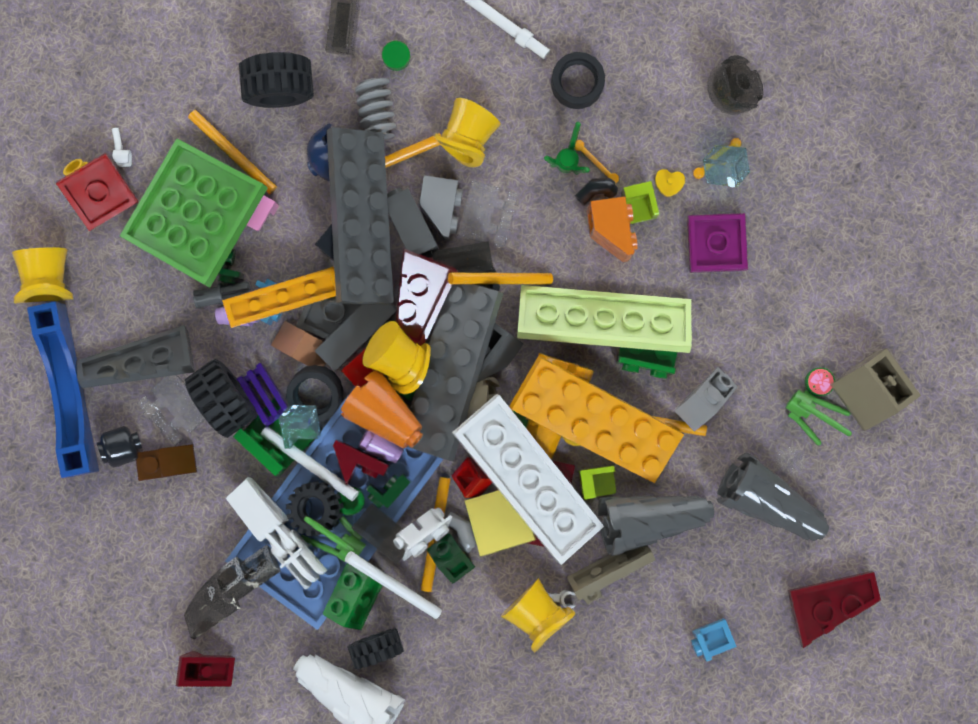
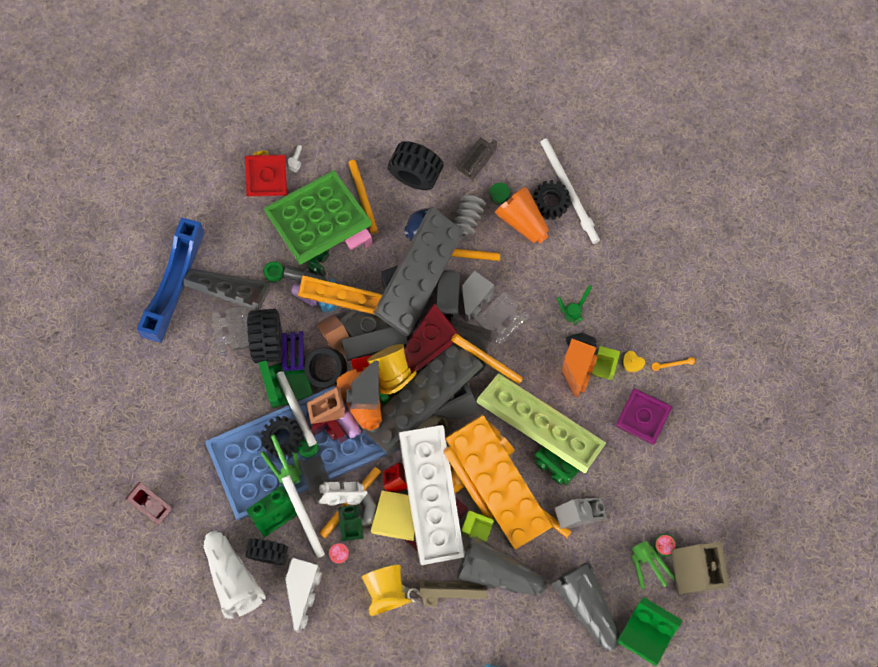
camera: 30 degrees right, 15 degrees down
(41, 274) = (202, 203): yellow hat -> none
(119, 446) = (183, 333): black head -> none
(166, 462) = (206, 360): reddish brown slope -> none
(180, 308) = (273, 272): none -> green tile
(221, 593) = (189, 458): clear smoke slope -> none
(263, 520) = (246, 428): white arm -> none
(299, 423) = (304, 380): clear light blue panel -> none
(347, 449) = (326, 407): none -> nougat slope
(384, 405) = (365, 389): none -> dark grey slope
(394, 488) = (340, 454): dark green bracket -> none
(435, 663) = (300, 584): none -> white slope
(444, 71) = (524, 216): none -> orange cone
(457, 600) = (339, 553): none -> tile
(459, 14) = (556, 189): none -> black tyre
(468, 132) = (518, 259): yellow hat -> none
(555, 438) = (467, 482): none -> light orange bar
(580, 147) = (586, 308): light orange hinge -> none
(588, 61) = (609, 252): black tyre -> none
(726, 165) = (676, 370): clear light blue panel -> none
(734, 86) = (708, 321): clear smoke cylinder -> none
(855, 493) = (649, 631): none -> green bracket

